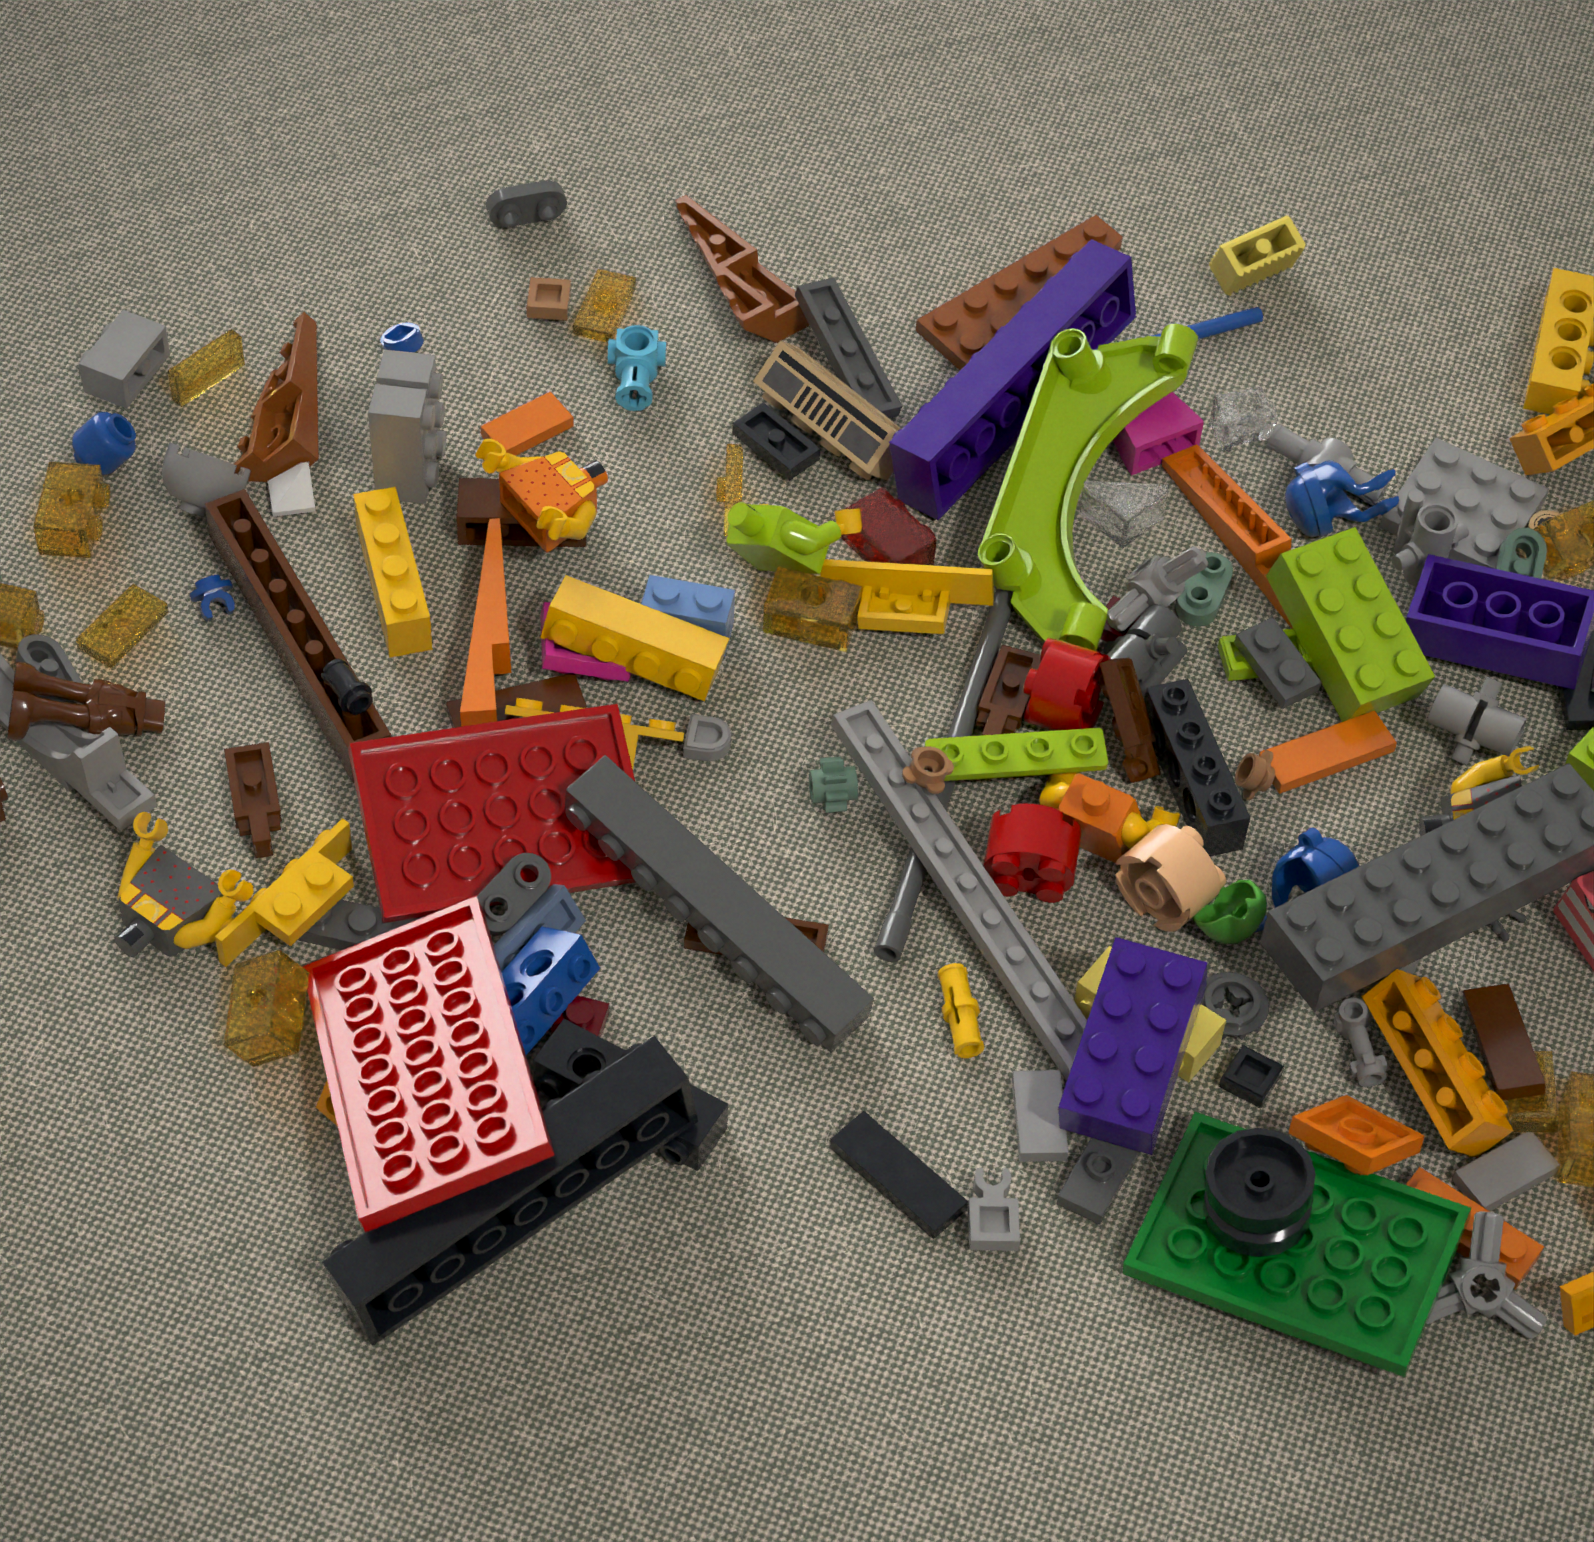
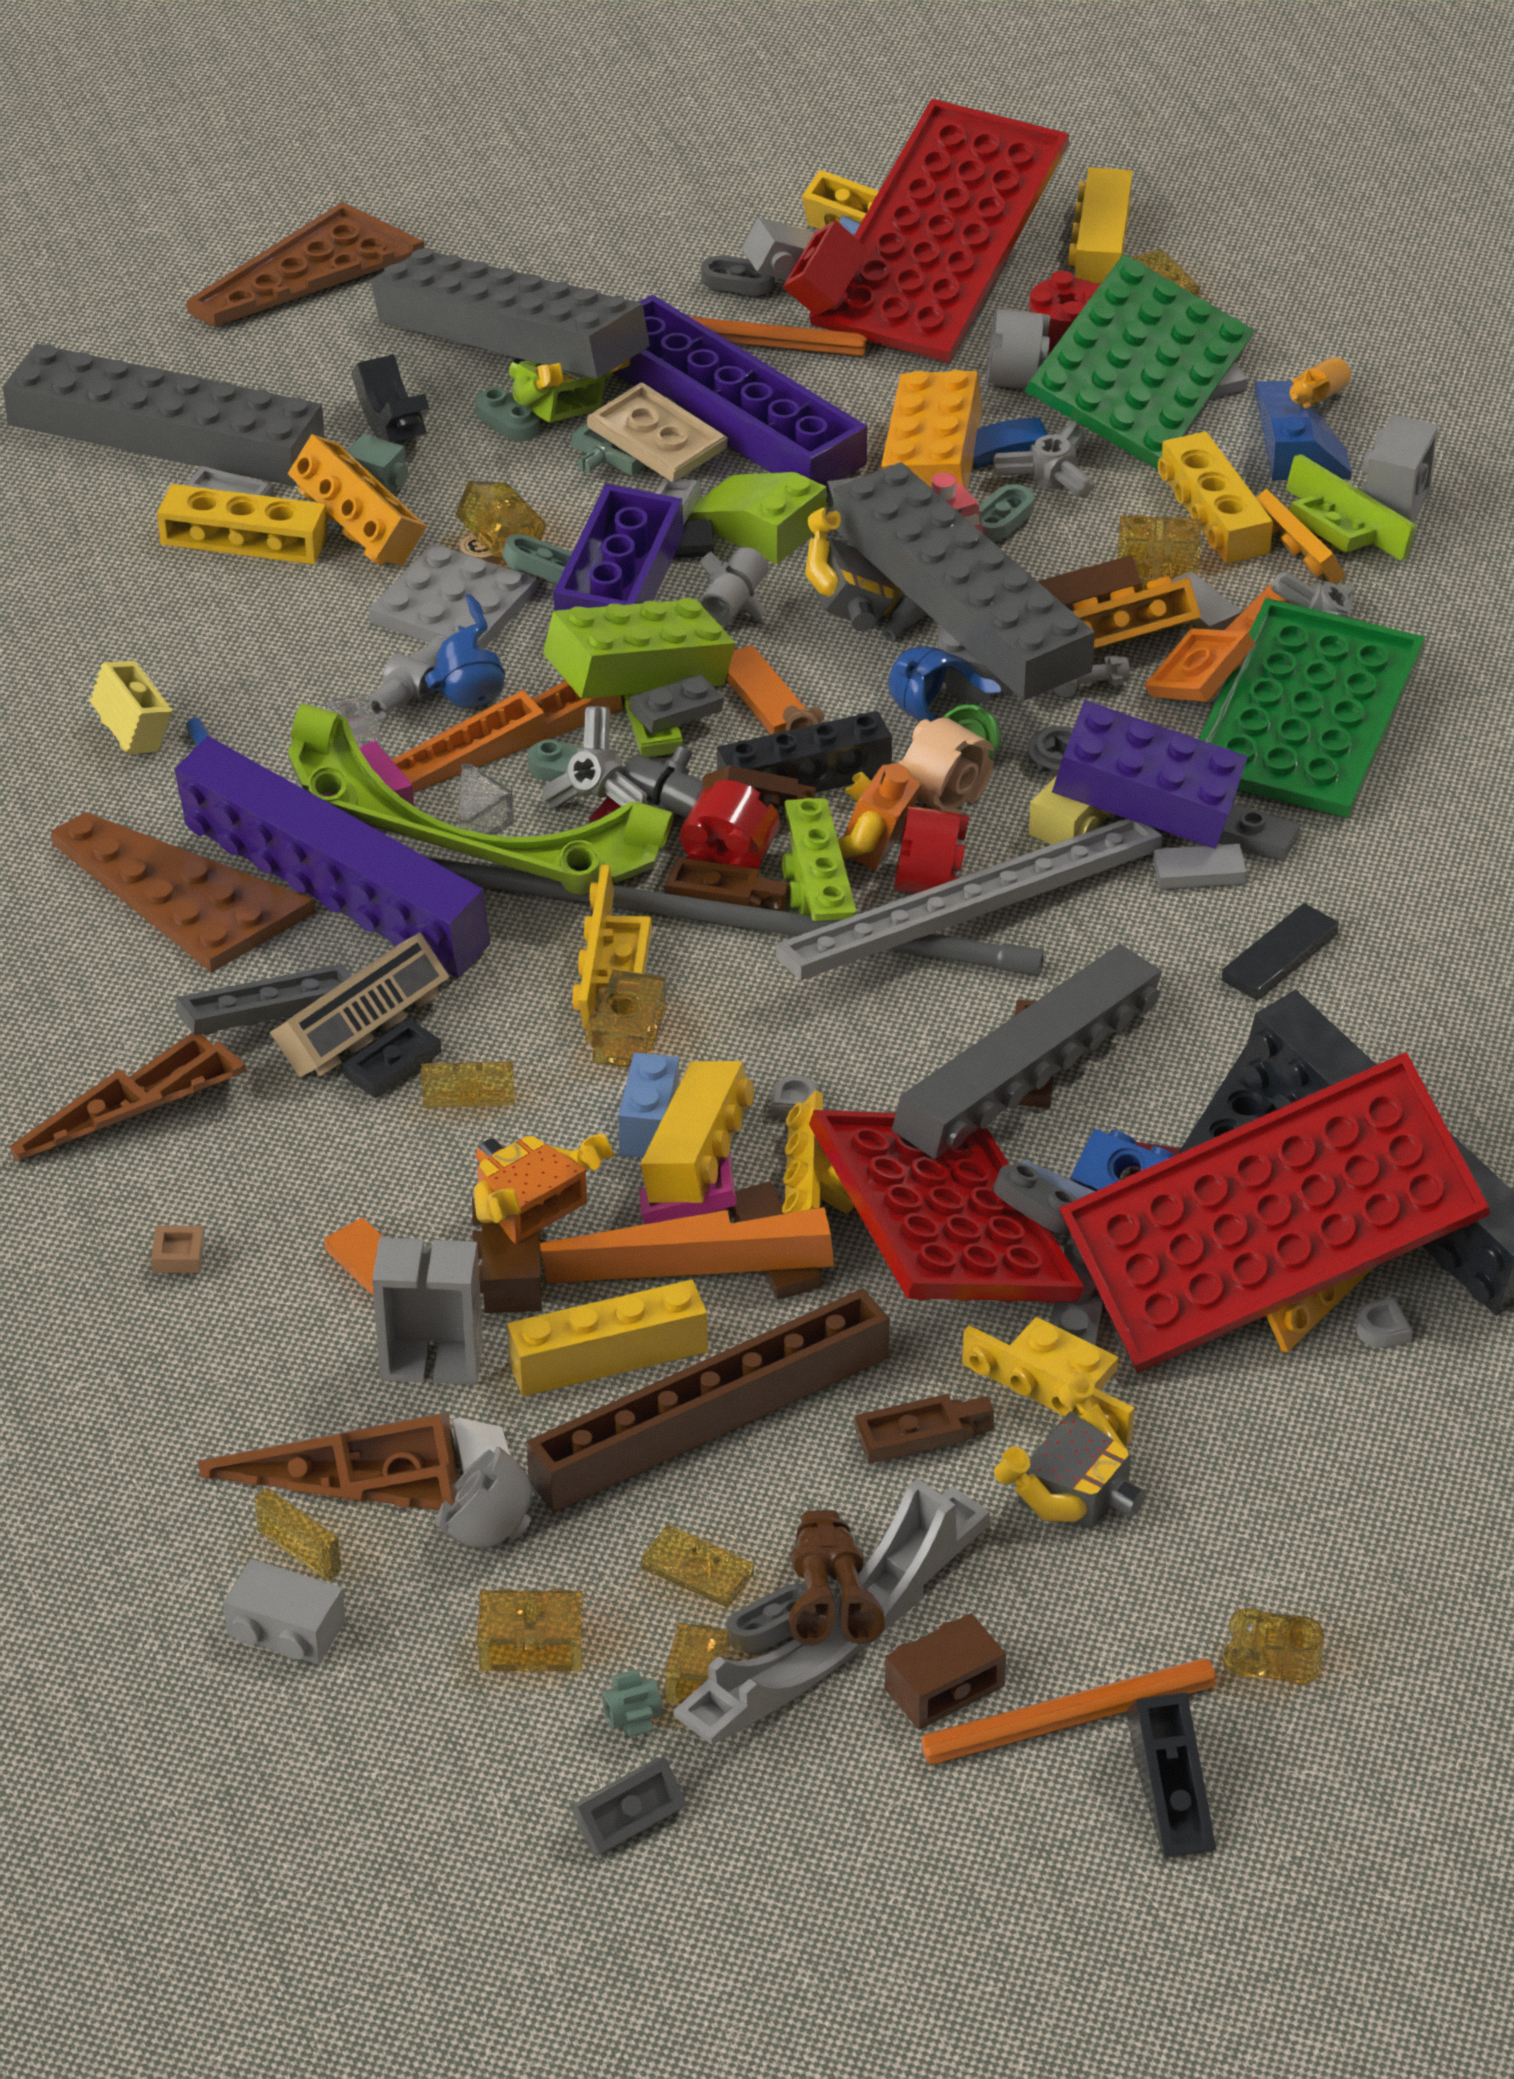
camera: 90 degrees left, 10 degrees down
(104, 441) = (432, 1604): blue head -> none
(210, 590) = (645, 1493): blue plate -> none
(266, 1008) = (1225, 1386): clear yellow brick -> none
(332, 1192) = (1383, 1324): none -> light grey tile
(352, 694) = (826, 1308): black pin -> none
(402, 337) = (244, 1370): blue tile -> none
(526, 203) = (23, 1262): dark grey plate -> none
(604, 305) = (181, 1206): clear yellow plate -> none
(636, 360) = (279, 1168): medium azure connector -> none
(781, 538) = (562, 1022): lime torso -> none
(833, 784) = (856, 994): sand green gear -> none
(890, 532) = (528, 968): clear red brick -> none
(932, 760) = (860, 900): medium nougat plate -> none
(960, 1010) = (1098, 913): yellow pin -> none
(992, 1216) = (1316, 886): light grey plate -> none
(1259, 1192) = (1289, 700): black wheel -> none
(1422, 532) = (522, 604): light grey pin -> none

